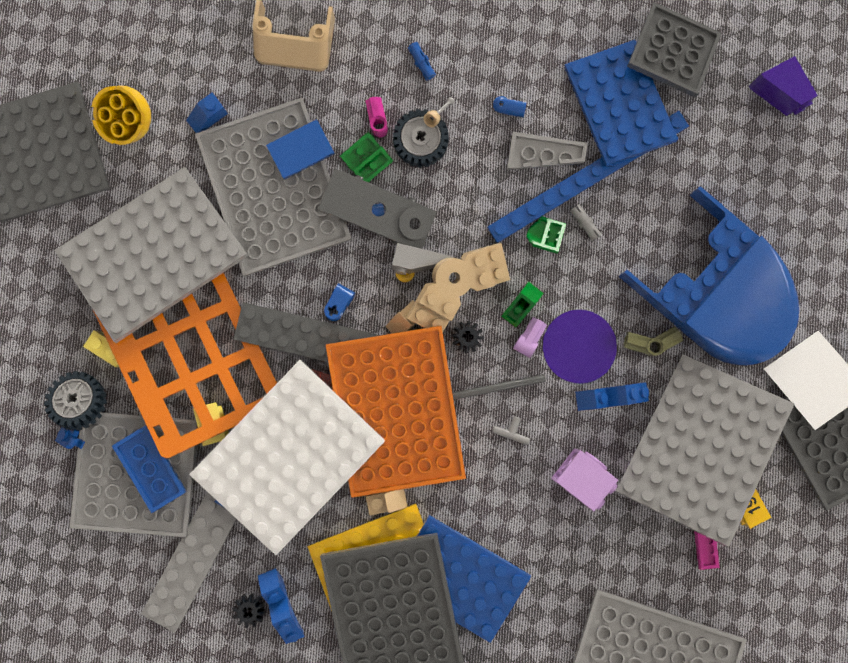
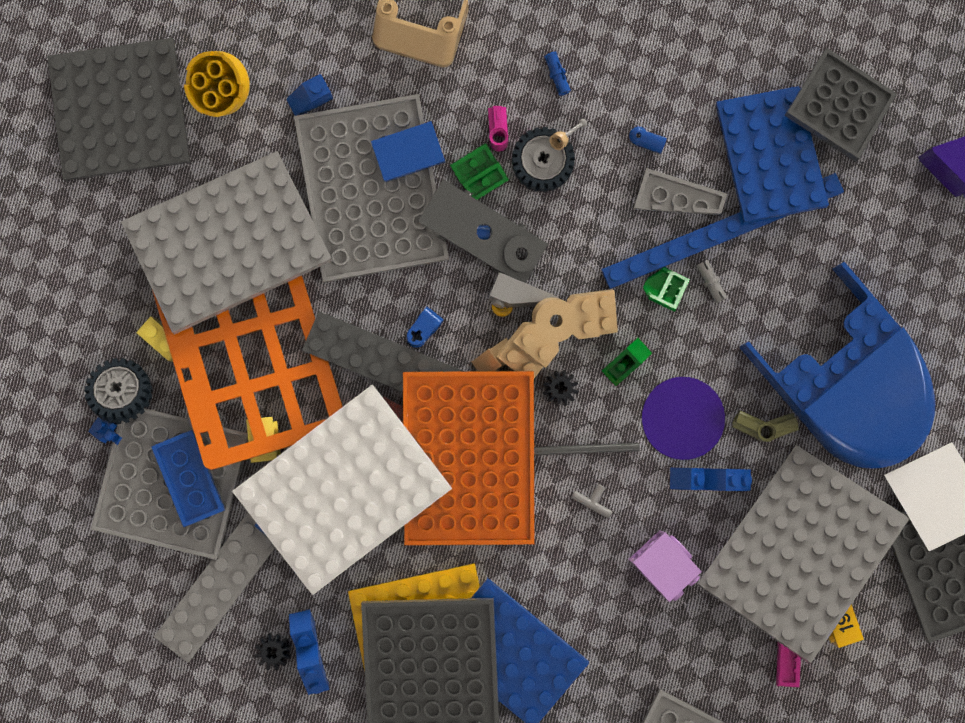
camera: 10 degrees right, 0 degrees up
(386, 502) = (442, 556): tan slope -> none
(528, 340) = (627, 403): lavender piece -> none

